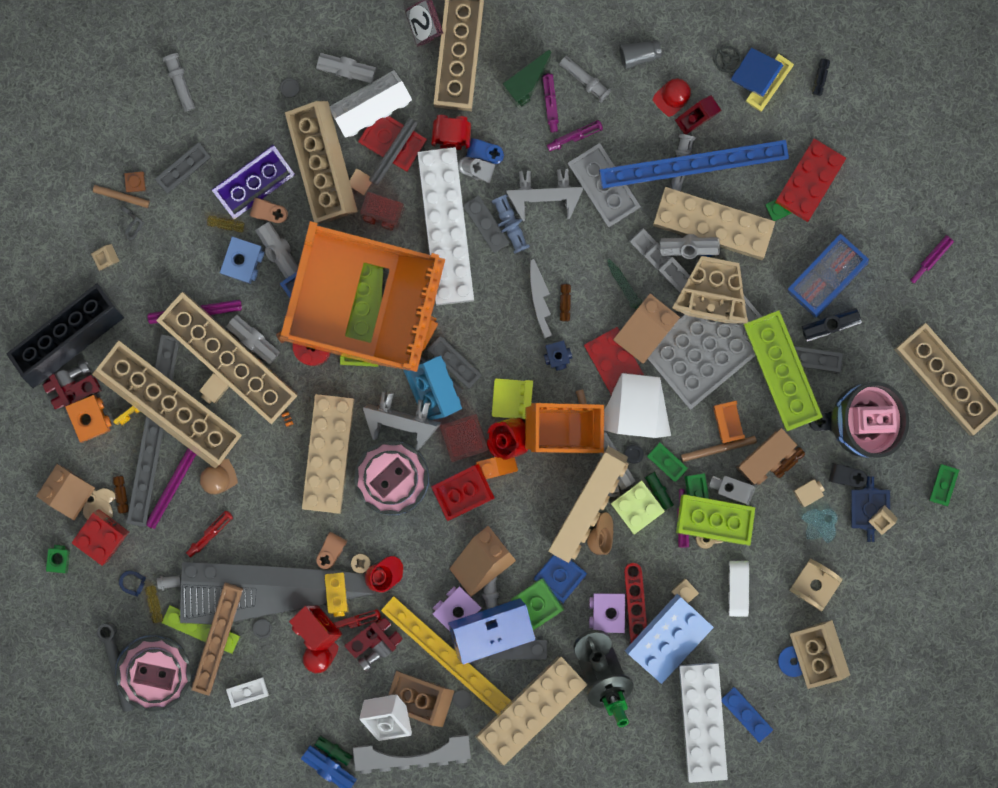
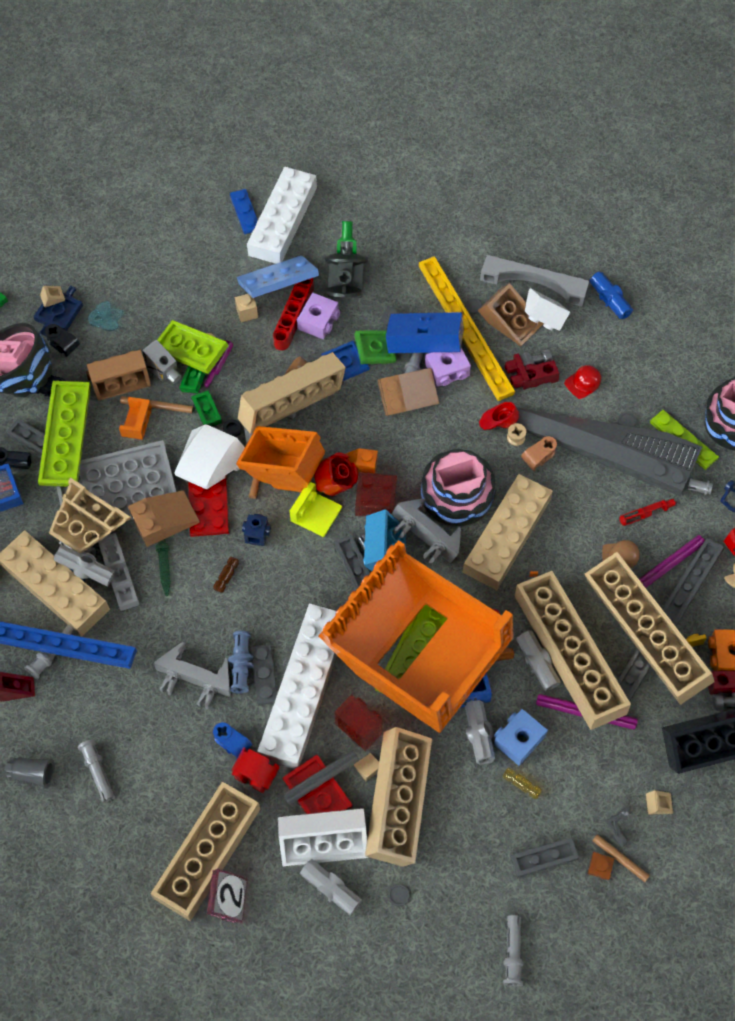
camera: 155 degrees left, 25 degrees down
(120, 493) = (720, 577): reddish brown axle -> none
(153, 603) = (720, 475): clear yellow axle -> none
(213, 389) = (598, 628): tan brick -> none
(217, 639) = (671, 421): medium nougat tile -> none
(247, 692) = (660, 375): white plate -> none
(251, 179) = (478, 814): dark purple slope -> none
(265, 211) = (475, 776): nougat piece -> none
(315, 628) = (579, 392): red brick -> none
(333, 750) = (601, 307): dark green pin -> none
(336, 594) = (549, 415): yellow bracket -> none
(355, 621) = (544, 394): red piece -> none
(463, 492) = (398, 449): red plate -> none
(476, 168) = (247, 726): light grey piece -> none
(522, 84) = (153, 788): dark green slope -> none
(531, 710) = (420, 268): tan brick -> none
(539, 291) = (245, 590): light grey slope -> none
(550, 101) = (142, 764): magenta piece -> none
(575, 135) = (136, 720): magenta piece -> none
(611, 203) = (140, 680): light grey plate -> none
(637, 507) = (248, 377): yellowish green brick -> none
(659, 491) = (225, 391): dark green pin -> none
(672, 96) = (23, 718): red cap -> none
(739, 589) = (199, 295): white beam -> none
(785, 665) = (186, 226): blue piece -> none
(809, 492) = (100, 340): tan brick -> none
(820, 654) = (161, 225): tan slope -> none
(829, 584) = (143, 266): tan hose -> none

